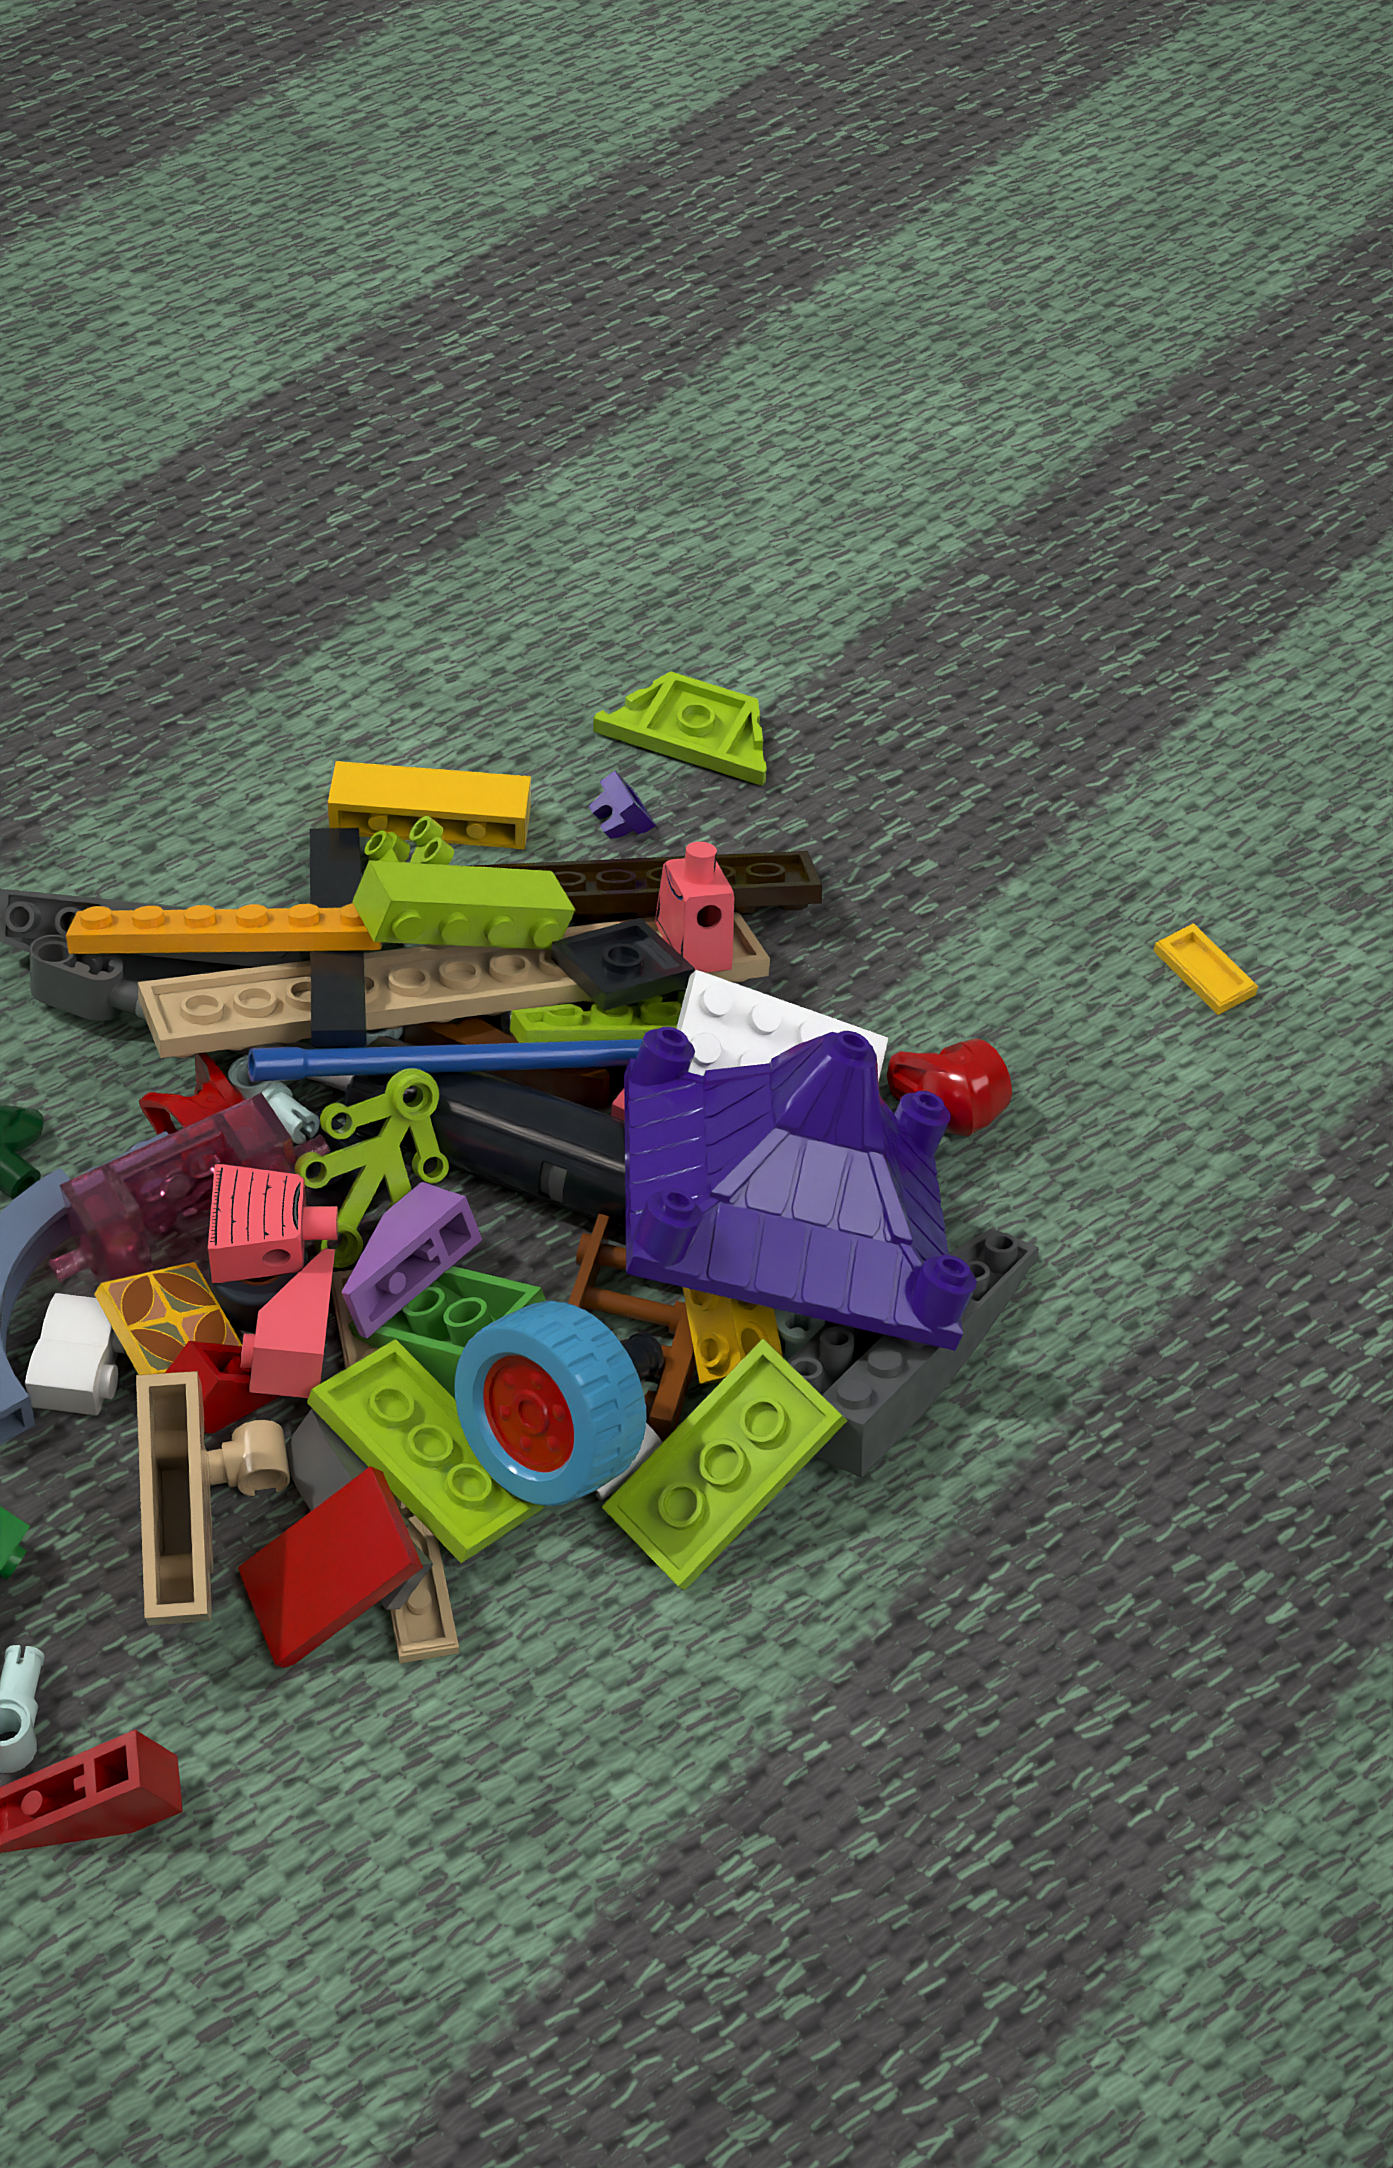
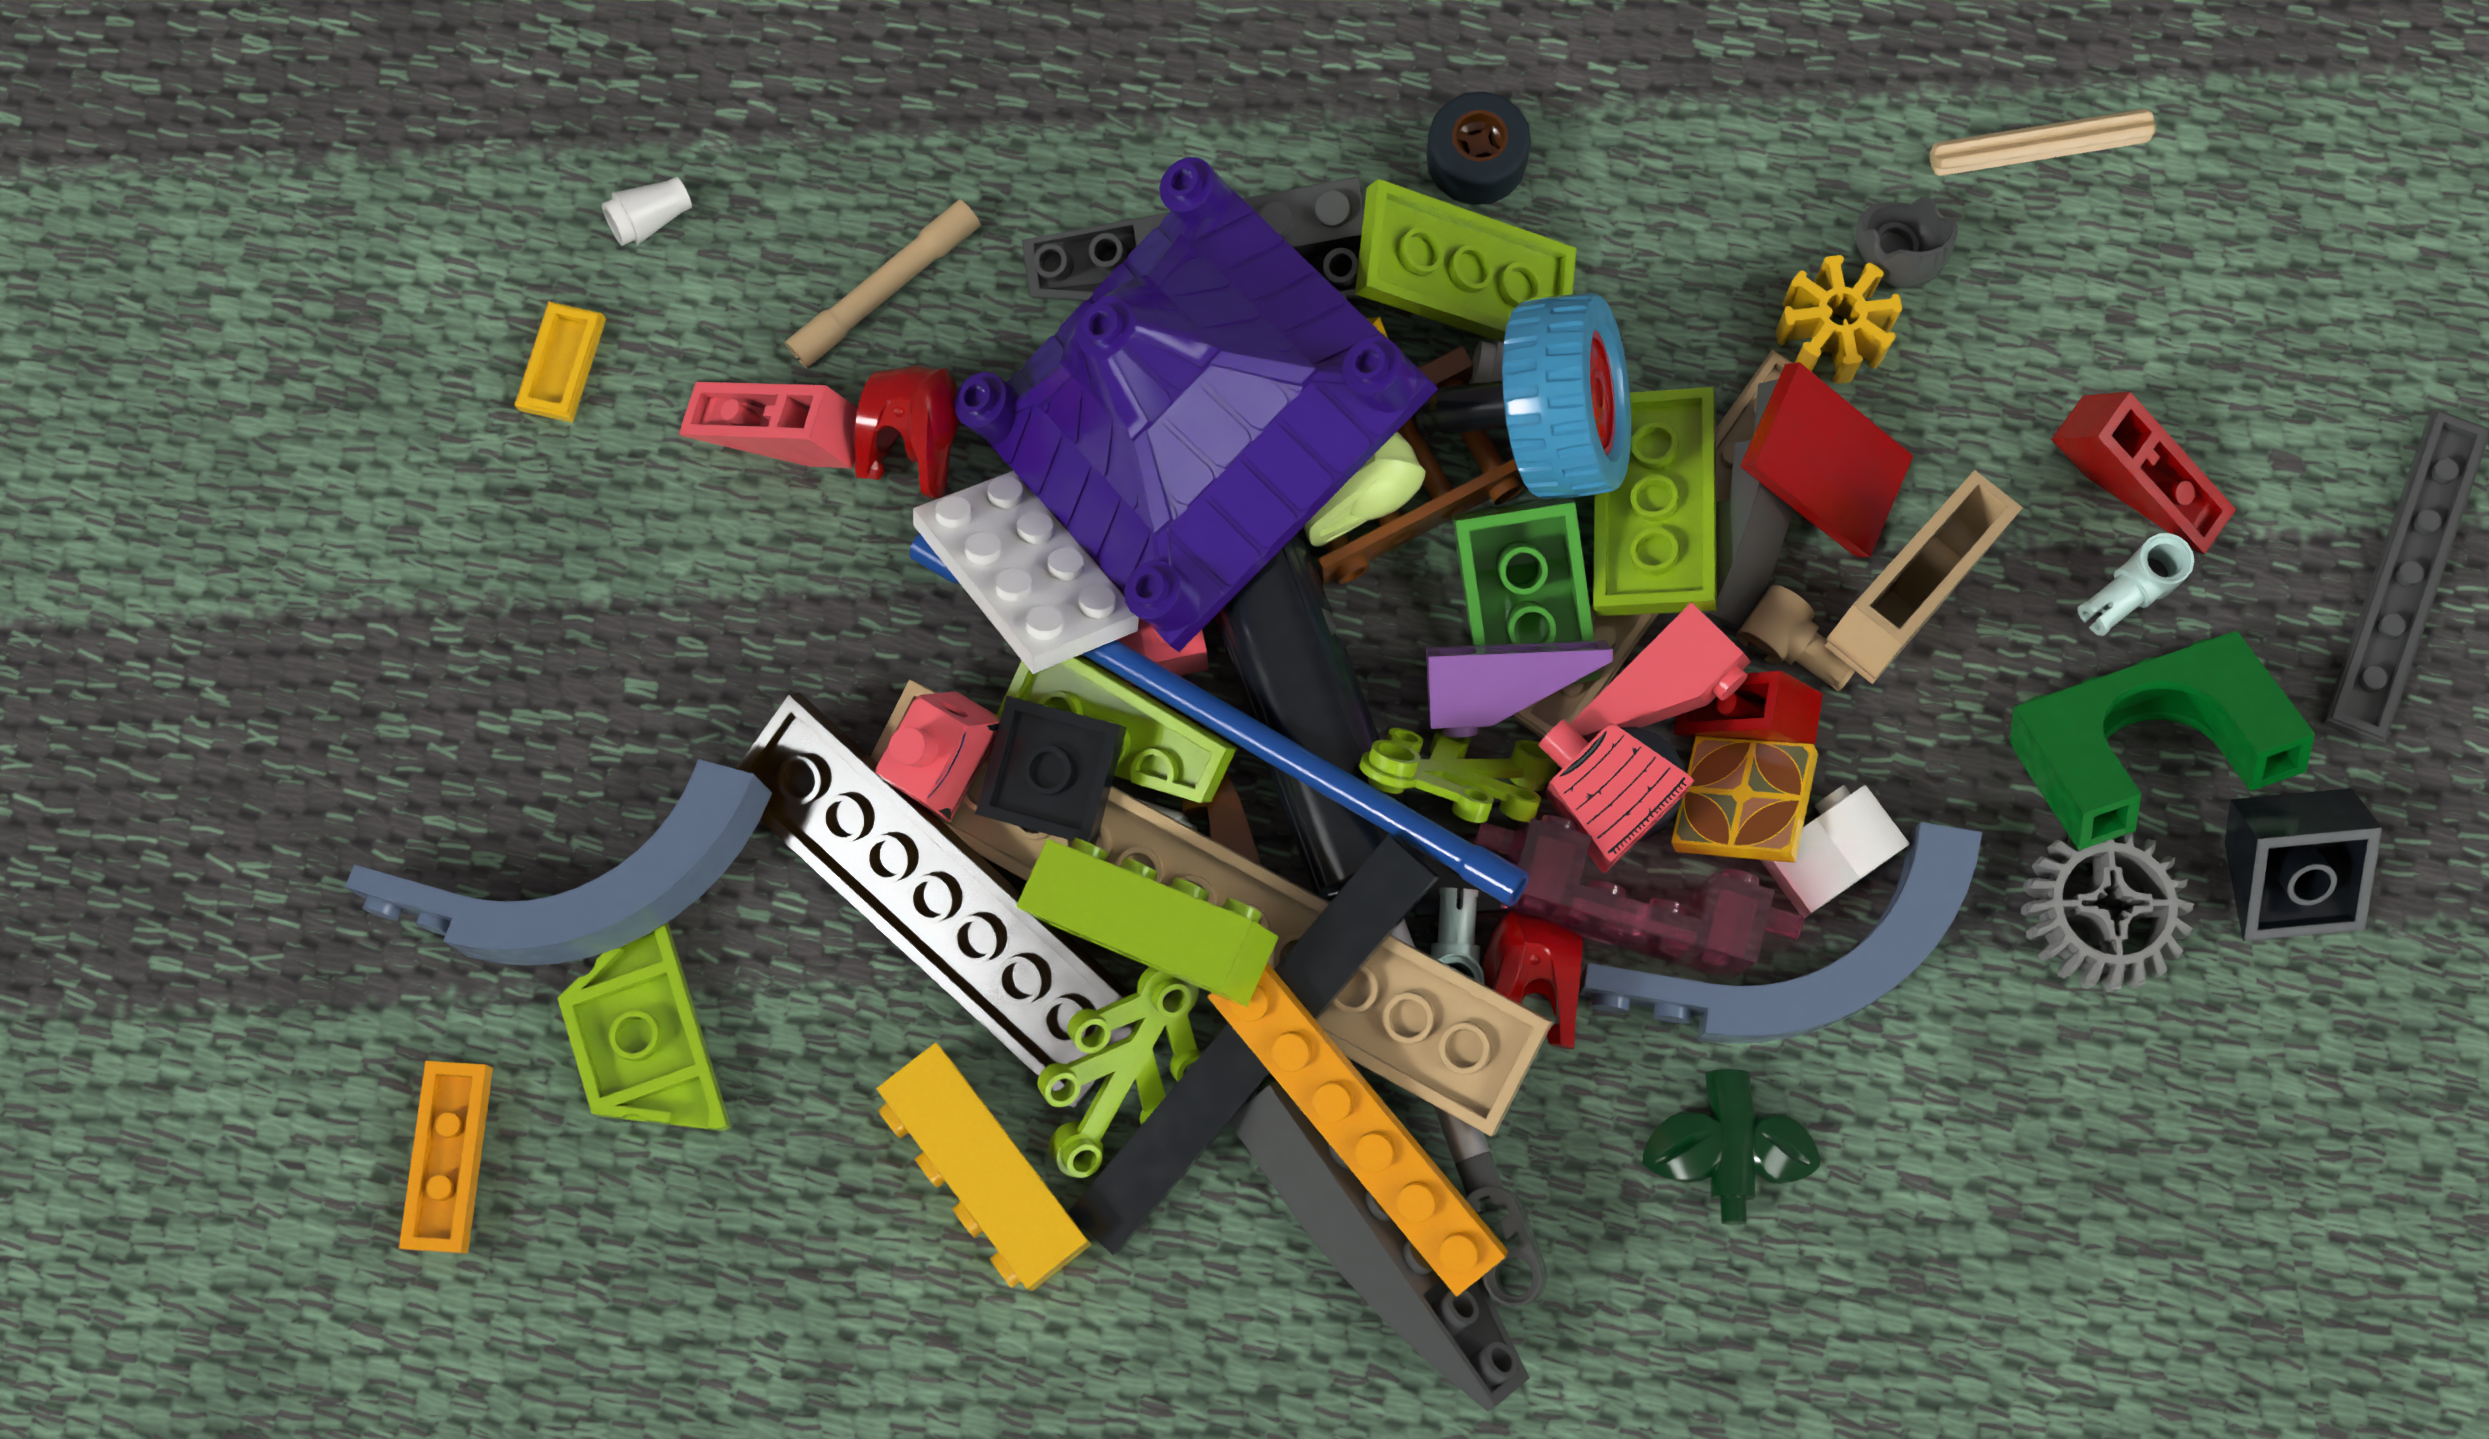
camera: 125 degrees left, 25 degrees up
(401, 1696) = (1864, 325): none -> yellow gear
(409, 2012) = (2042, 142): none -> tan axle
(439, 1800) = (1906, 241): none -> dark grey hair
(614, 1288) = (1372, 492): none -> yellowish green helmet
(623, 805) = (813, 992): tile -> none
(721, 610) = (446, 1157): none -> light orange plate
(775, 789) = (619, 907): none -> sand blue arch
(847, 1584) = (1481, 126): none -> black wheel
(1039, 1028) = (775, 420): none -> coral slope
(1094, 1212) = (834, 323): none -> tan piece
(1281, 1073) = (645, 209): none -> white cone

